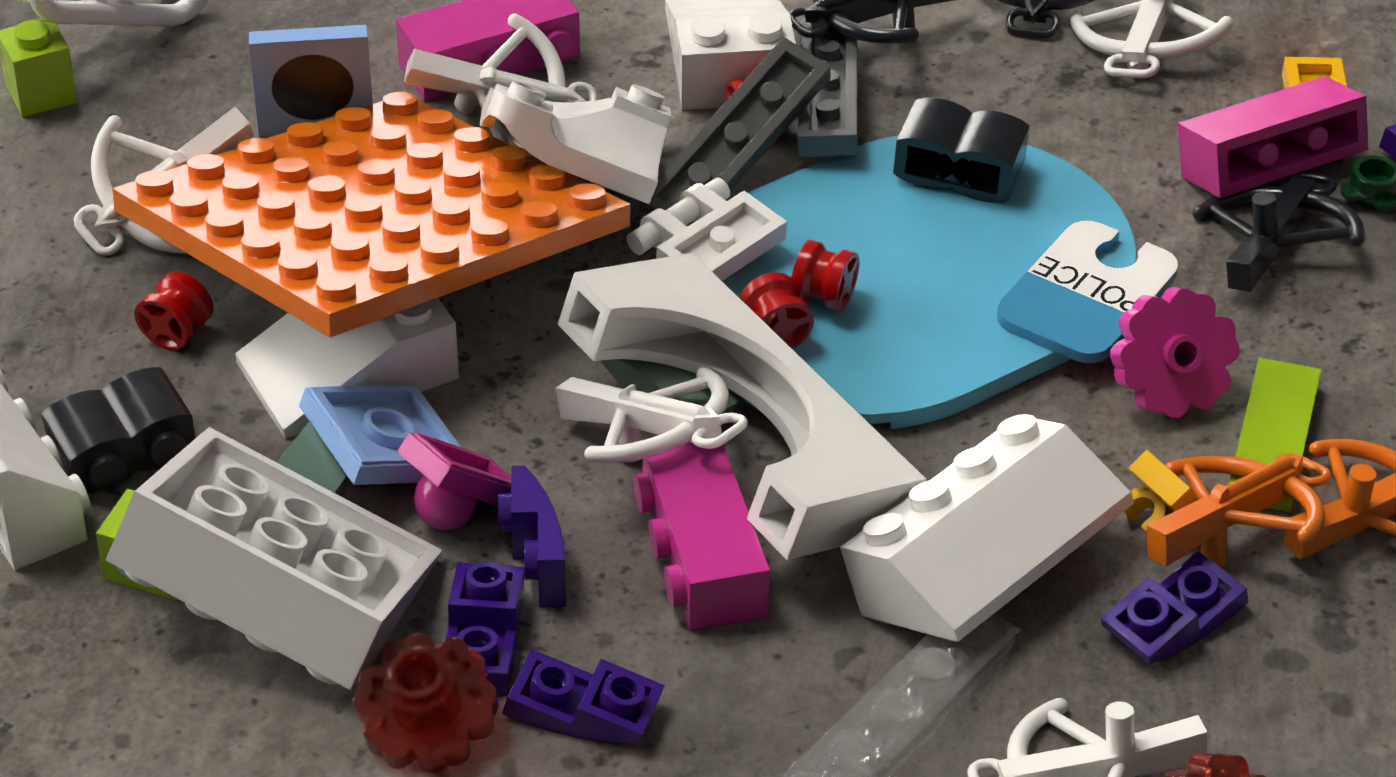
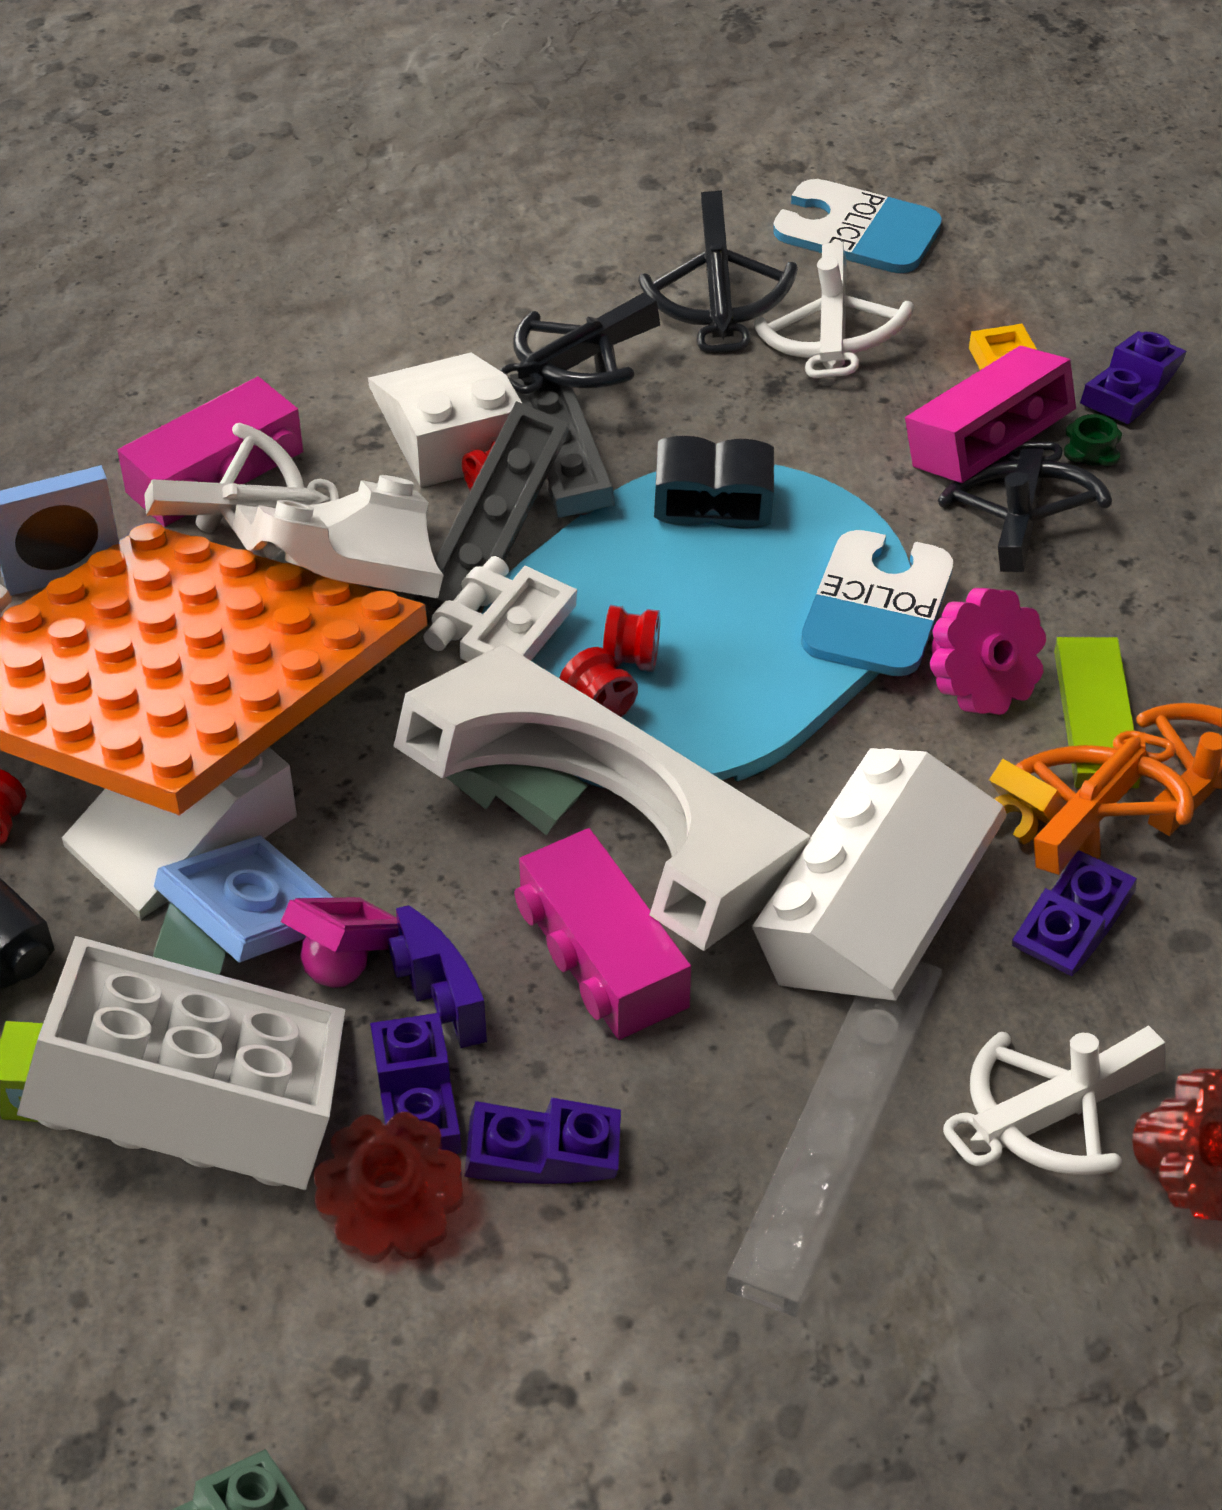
camera: 15 degrees left, 5 degrees up
(651, 412) = (516, 821): white piece -> none

